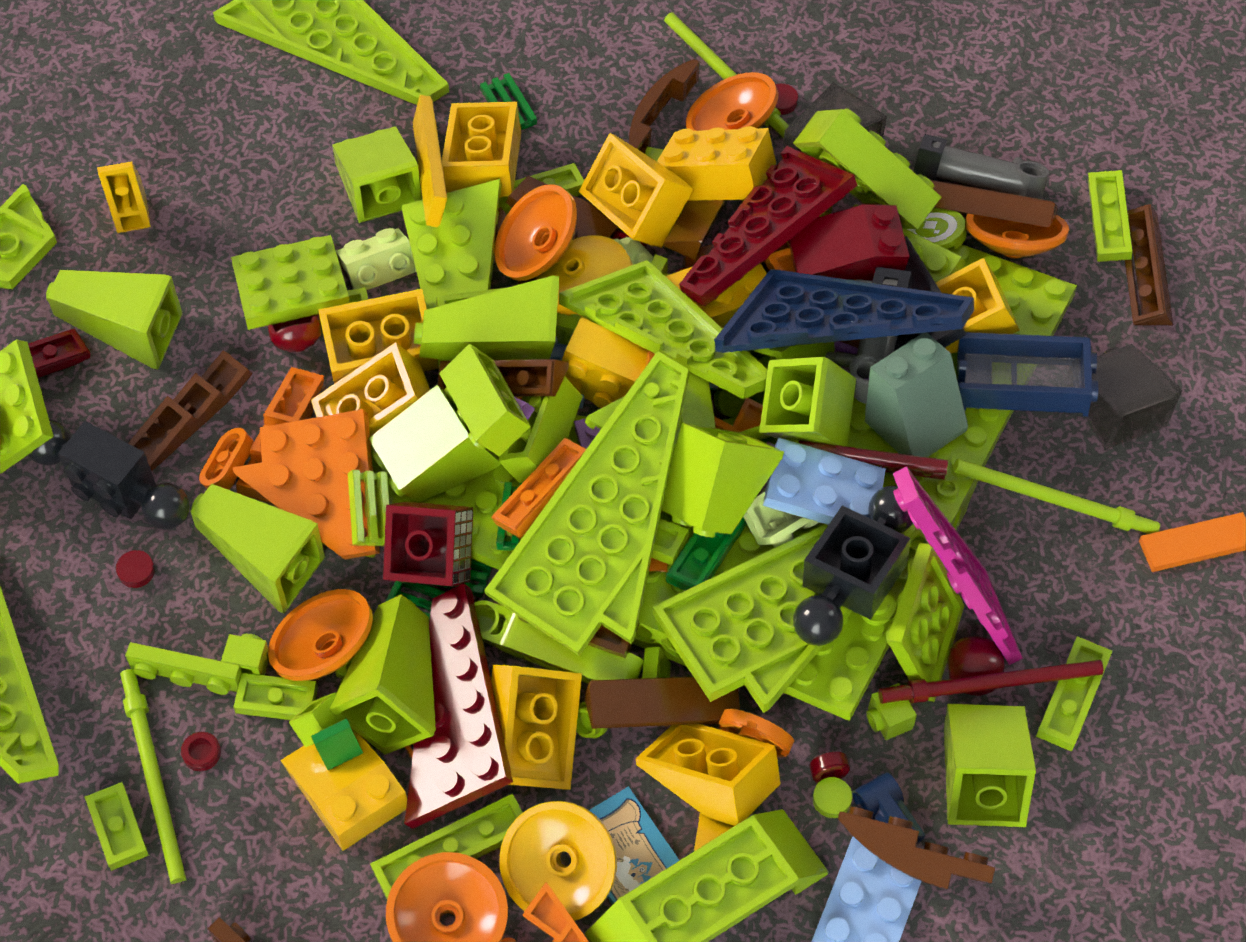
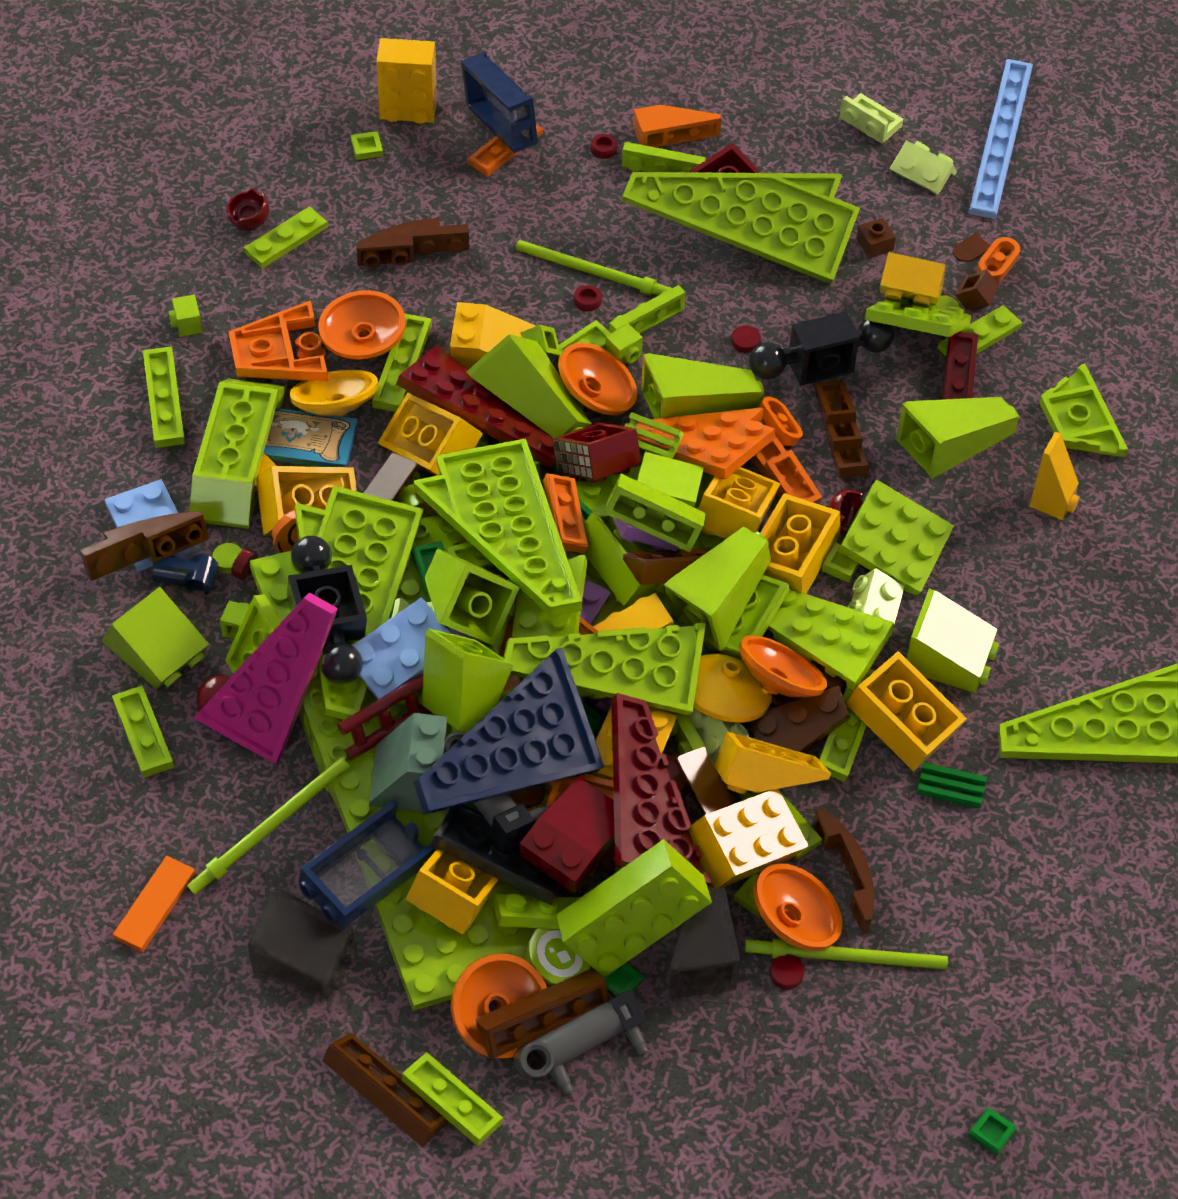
camera: 130 degrees right, 5 degrees down
(116, 826) = (578, 235): lime plate -> none
(337, 744) = (516, 326): green tile -> none
(429, 161) = (918, 658): yellow tile -> none
(920, 690) = (228, 632): dark red bar -> none

